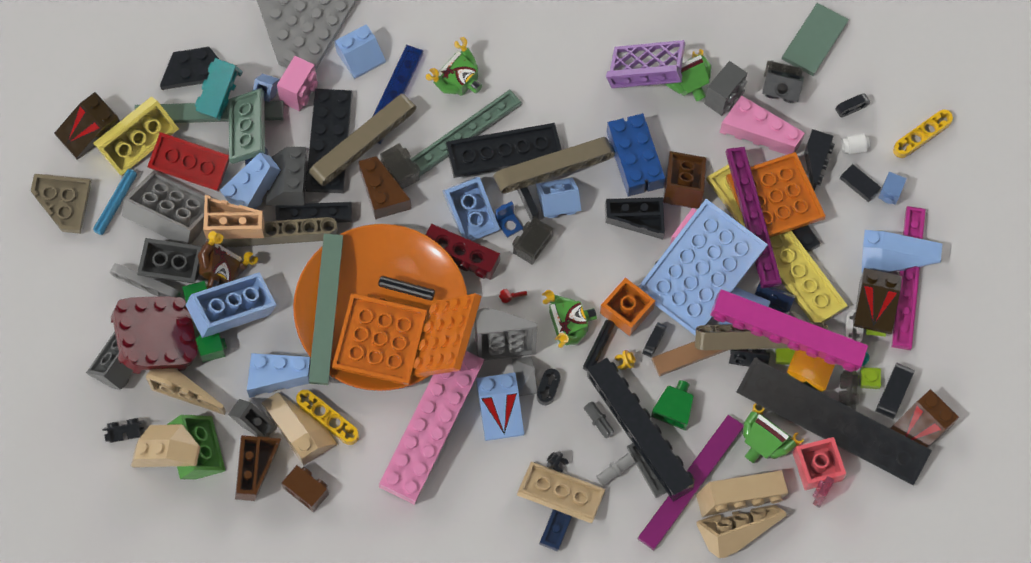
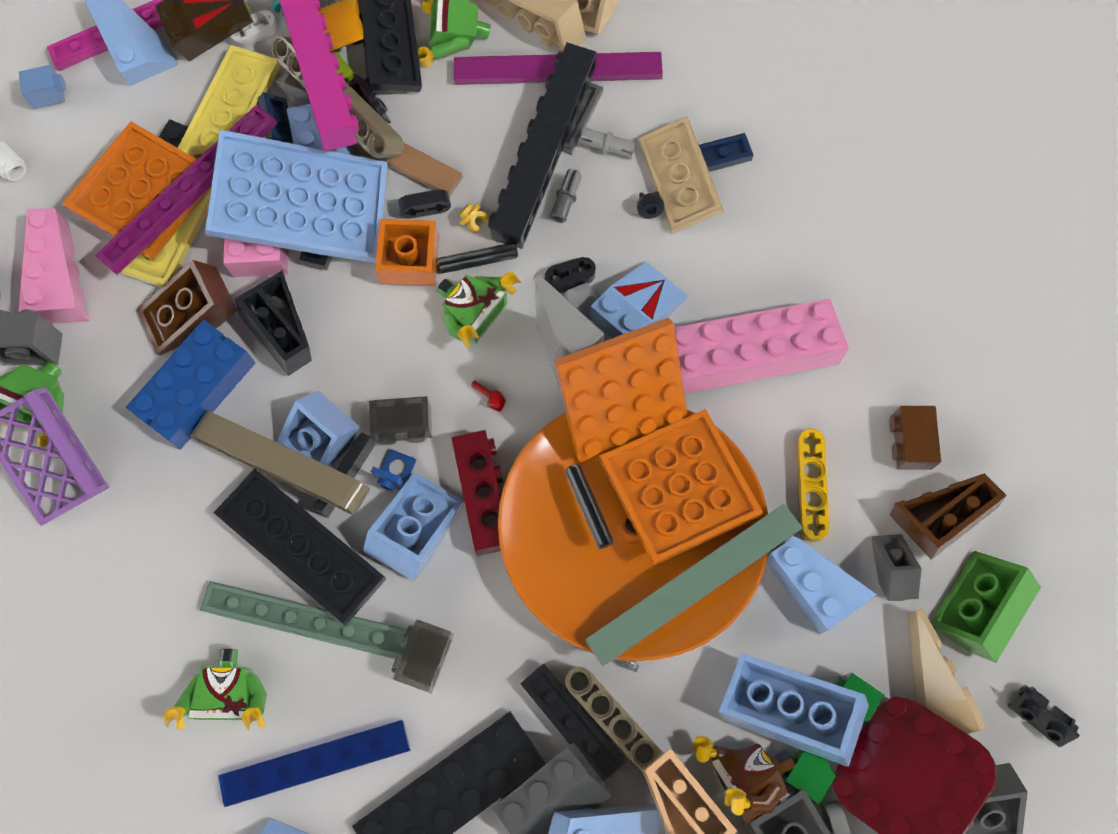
camera: 125 degrees left, 5 degrees up
(166, 447) = (1036, 628): tan wedge -> none
(300, 430) = (856, 499): tan wedge -> none
(362, 139) = (421, 738): dark tan beam -> none
(382, 189) = (471, 659): reddish brown wedge -> none
(674, 406) = (487, 132): green torso -> none
(815, 155) = (49, 187): black slope -> none
(860, 182) = (56, 130): black tile -> none

